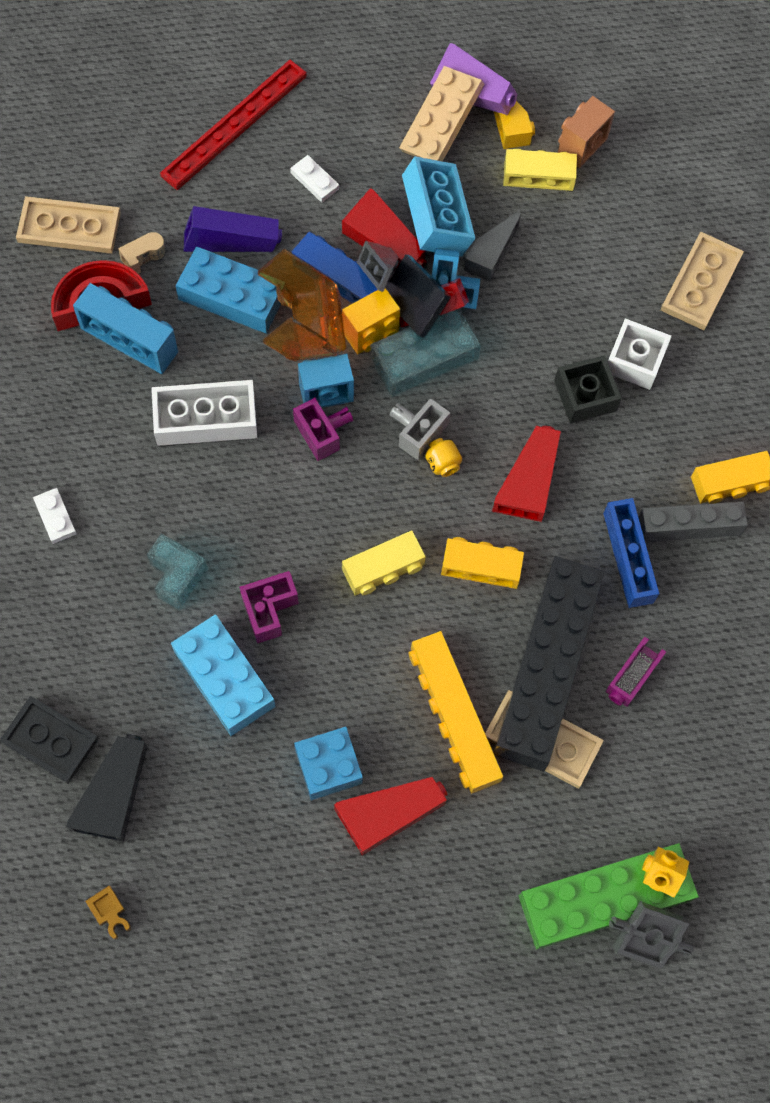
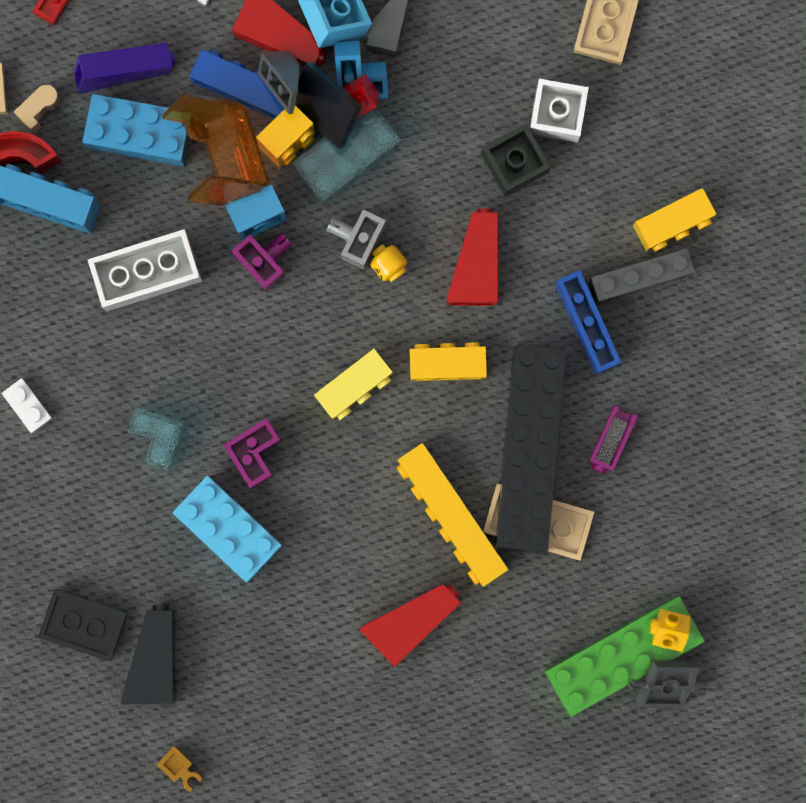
camera: 10 degrees left, 15 degrees up
(328, 763) = (345, 591): dark azure brick -> none

